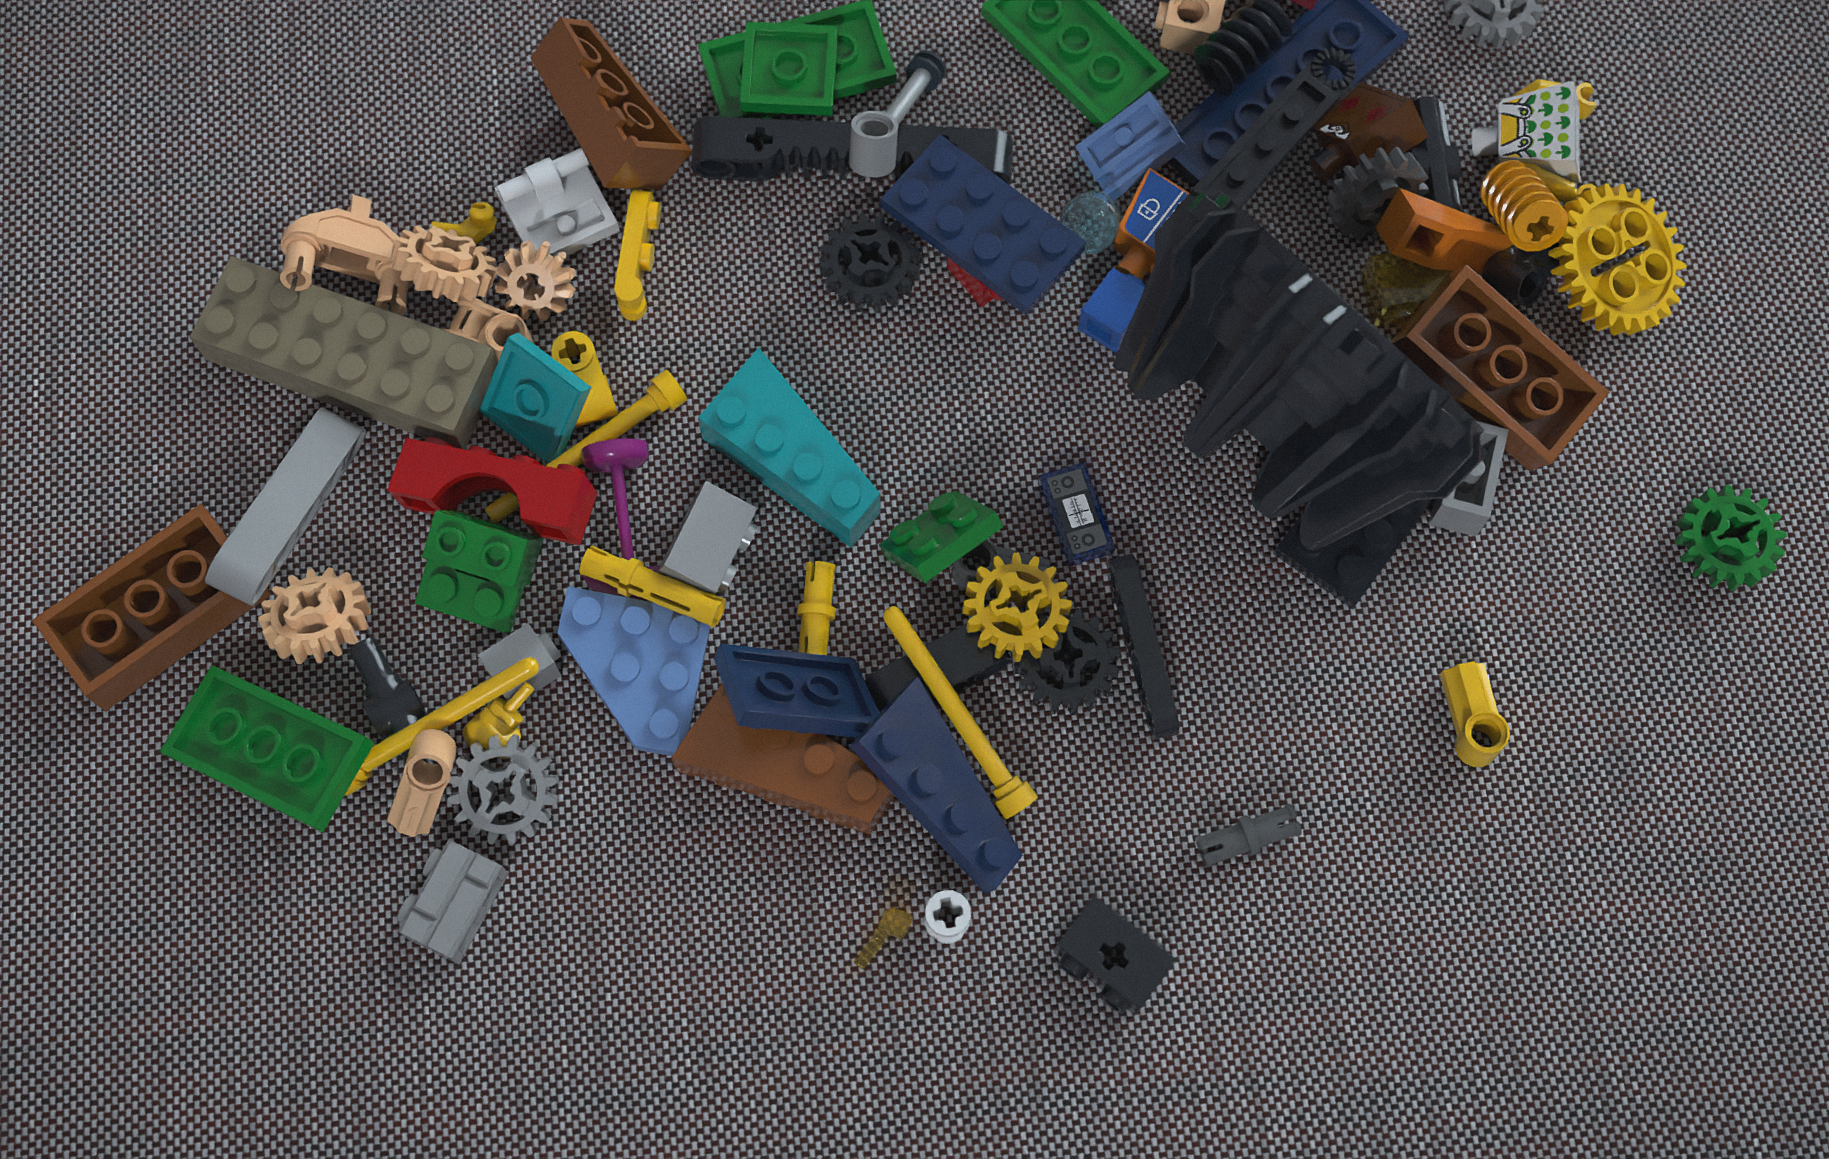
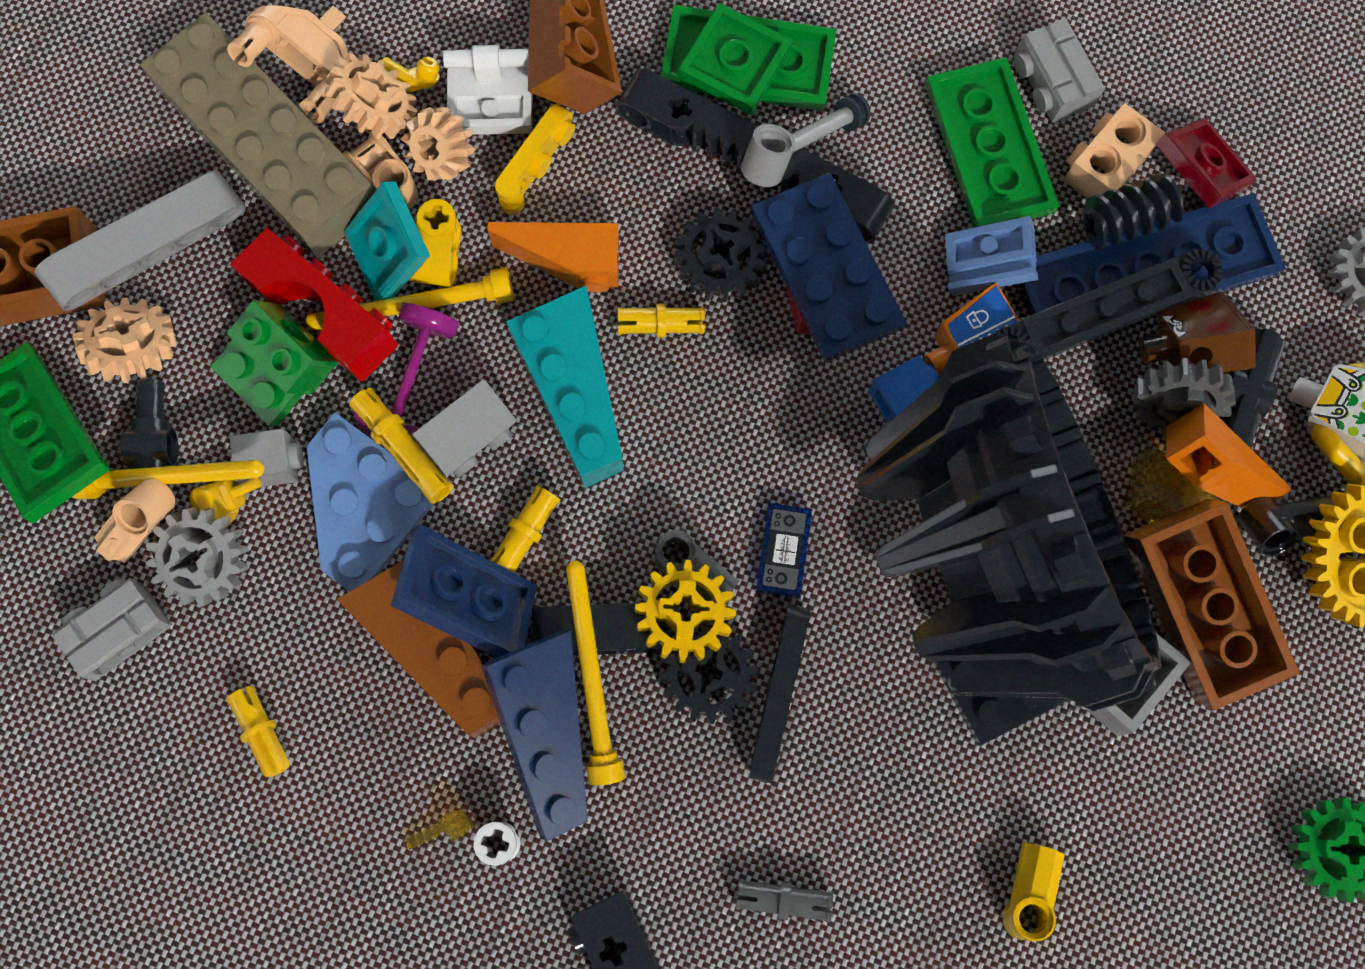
camera: 25 degrees right, 5 degrees up
(653, 928) = (258, 731): none -> yellow axle
(715, 328) = (569, 251): none -> orange slope
(843, 352) = (660, 320): none -> yellow pin
(940, 535) = (656, 517): green plate -> none
(1093, 218) = (924, 305): clear light blue head -> none
(1523, 206) = (1308, 469): light orange piece -> none

